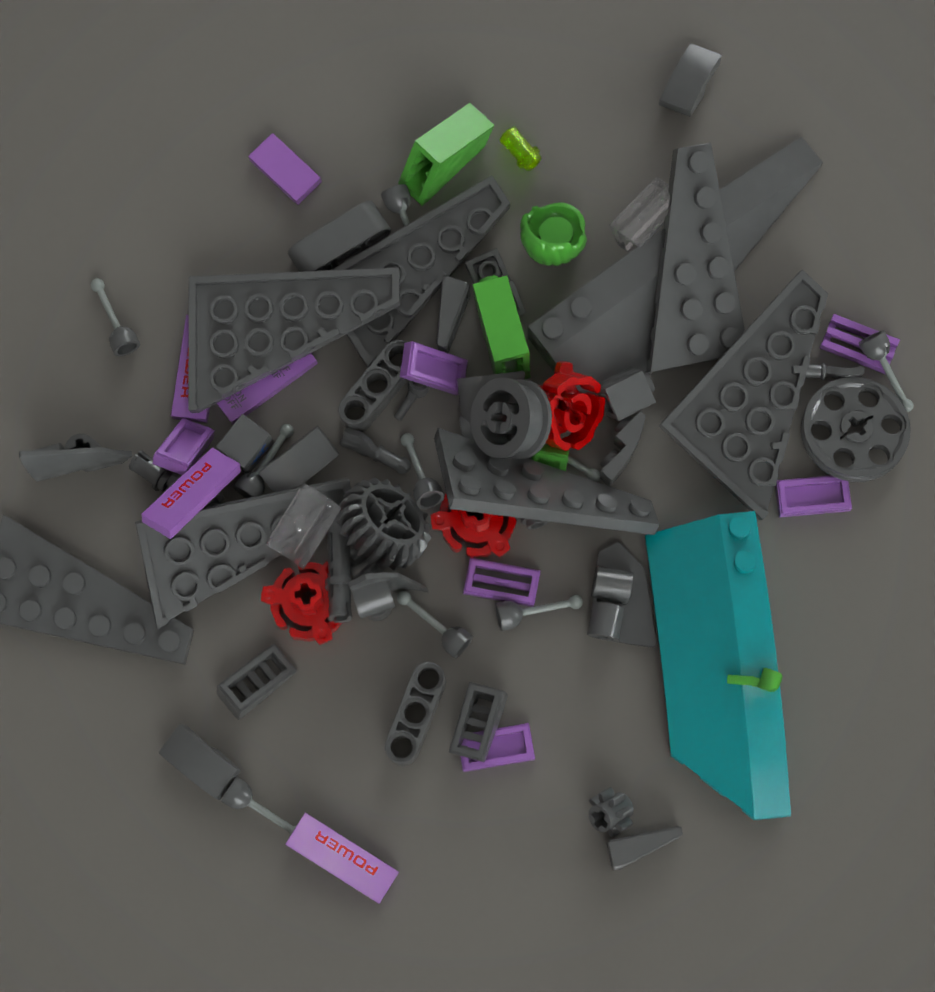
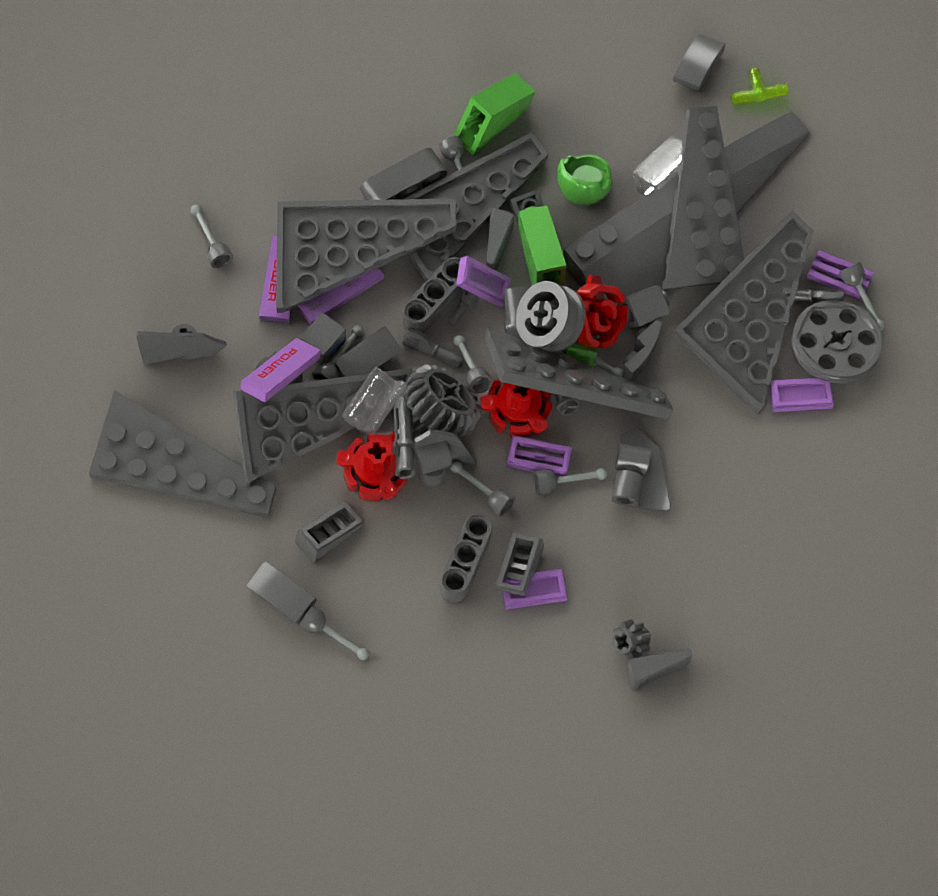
camera: 10 degrees left, 10 degrees down
(154, 474) = (241, 358): dark grey pin -> none
(183, 446) = (271, 337): medium lavender tile -> none
(285, 169) = (357, 122): medium lavender tile -> none
(342, 858) = (402, 673): medium lavender tile -> none
(525, 154) = (562, 118): clear neon green pin -> none
(715, 624) = (724, 520): teal slope -> none
(762, 115) = (759, 92): none -> clear neon green piece
(768, 681) = (763, 530): bright green hand -> none

